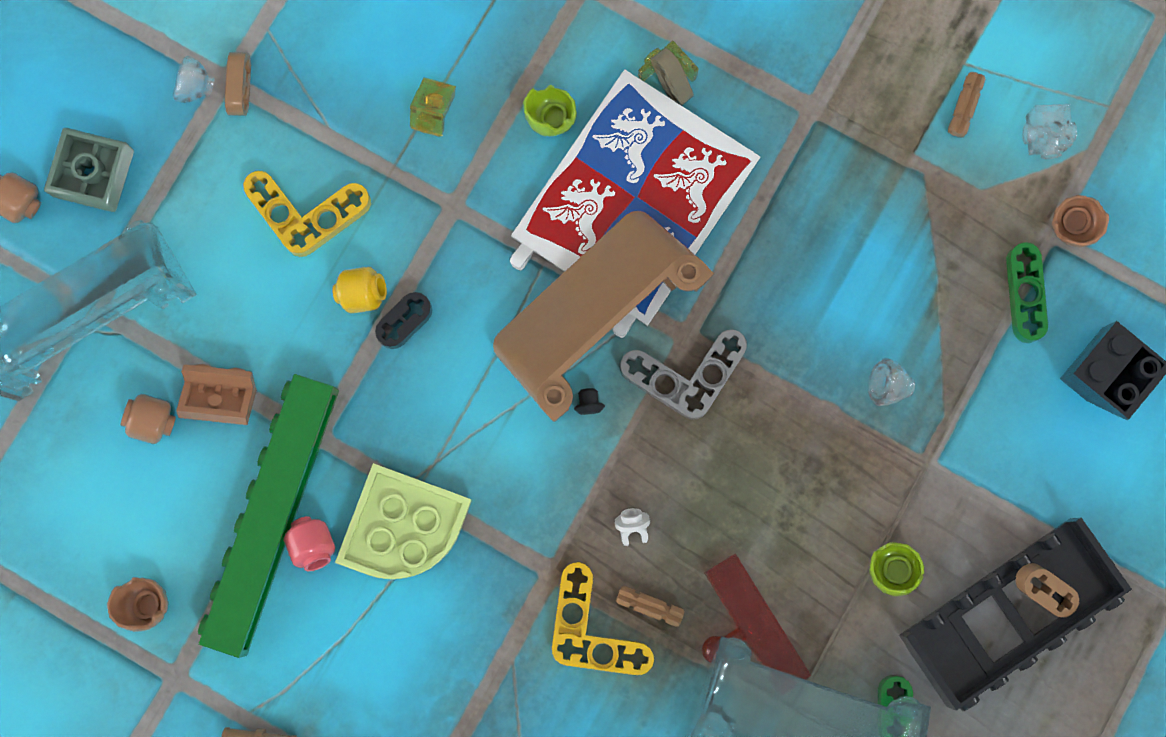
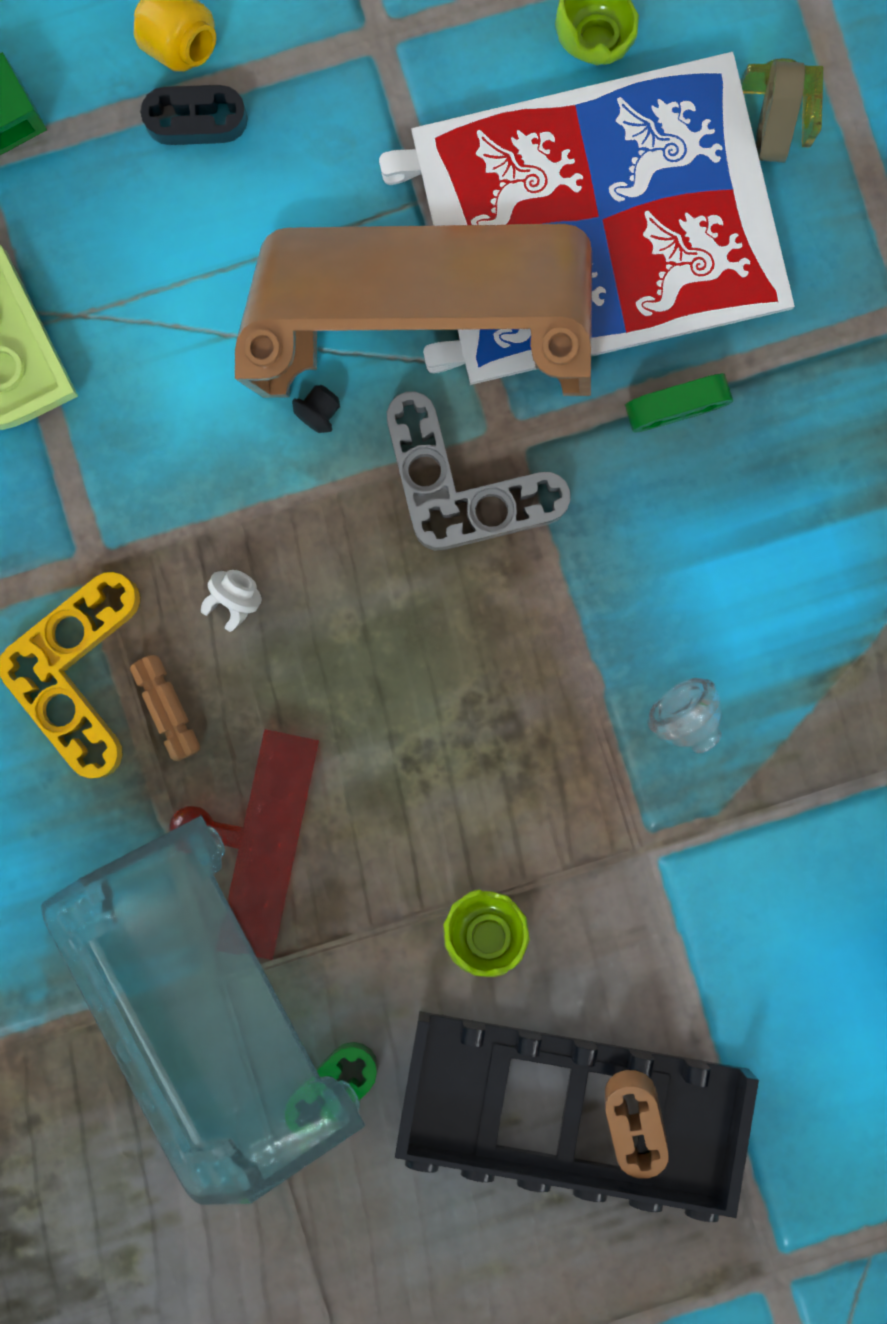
camera: 45 degrees right, 5 degrees up
(750, 247) = (678, 402): none -> green beam

